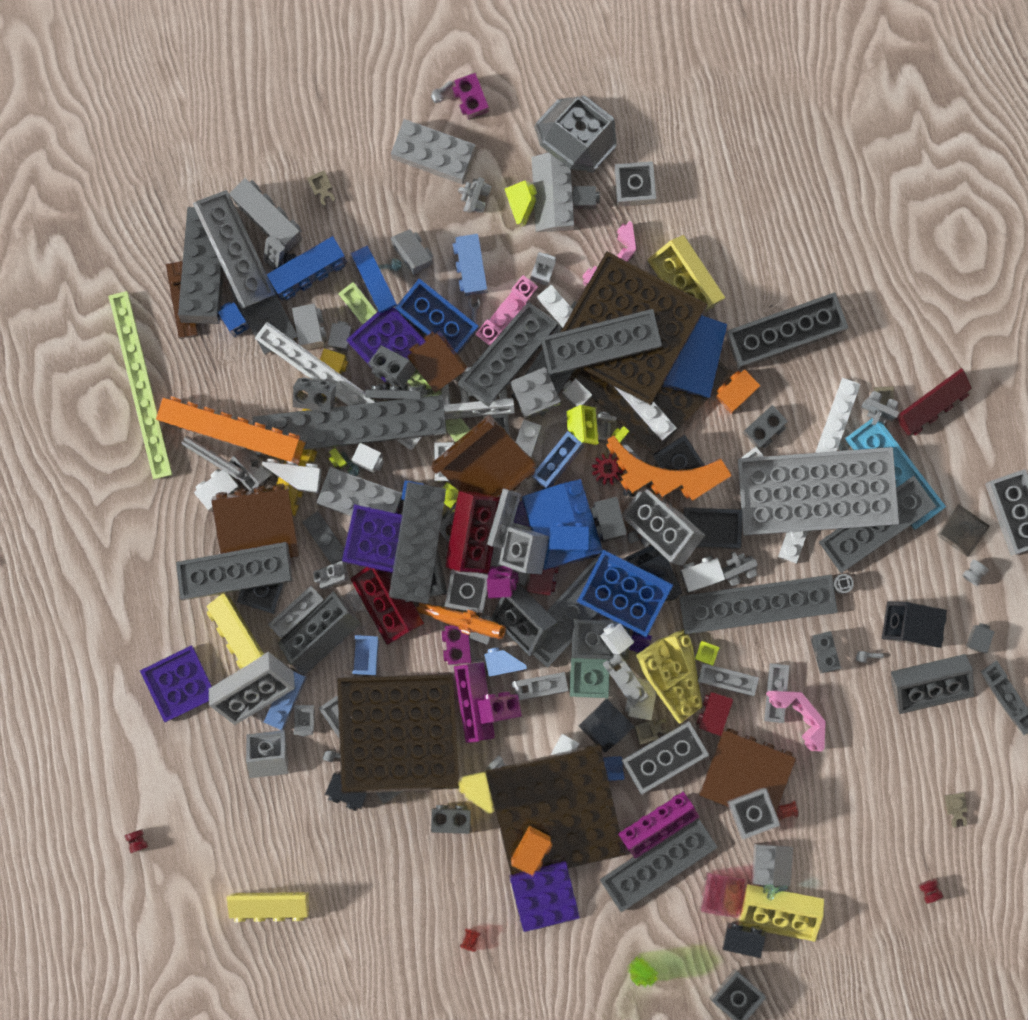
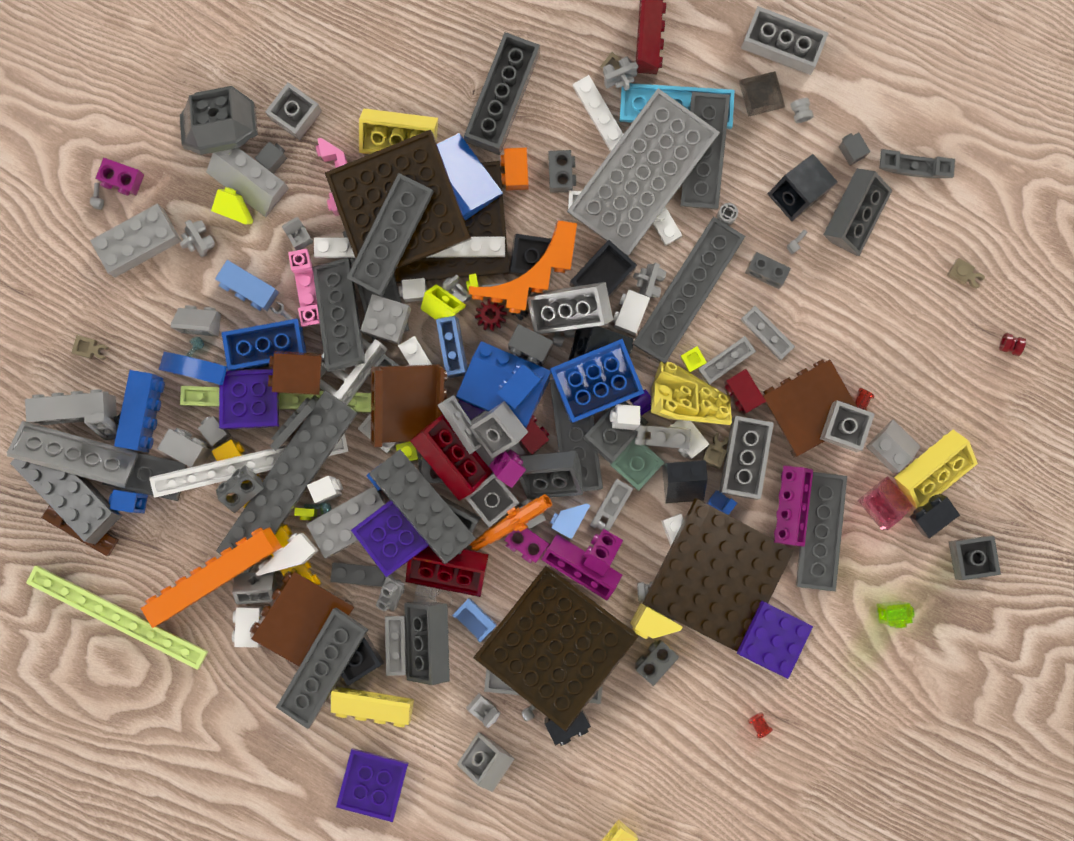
camera: 50 degrees left, 0 degrees up
(212, 457) = (220, 609): light grey axle -> none
(251, 688) = (424, 732): light grey brick -> none
(282, 707) = (455, 712): medium blue brick -> none
(391, 366) = (269, 410): dark grey brick -> none
(531, 851) = (733, 620): orange brick -> none
(772, 890) = (916, 461): clear light blue hand -> none
(815, 735) = (823, 330): bright pink slope -> none

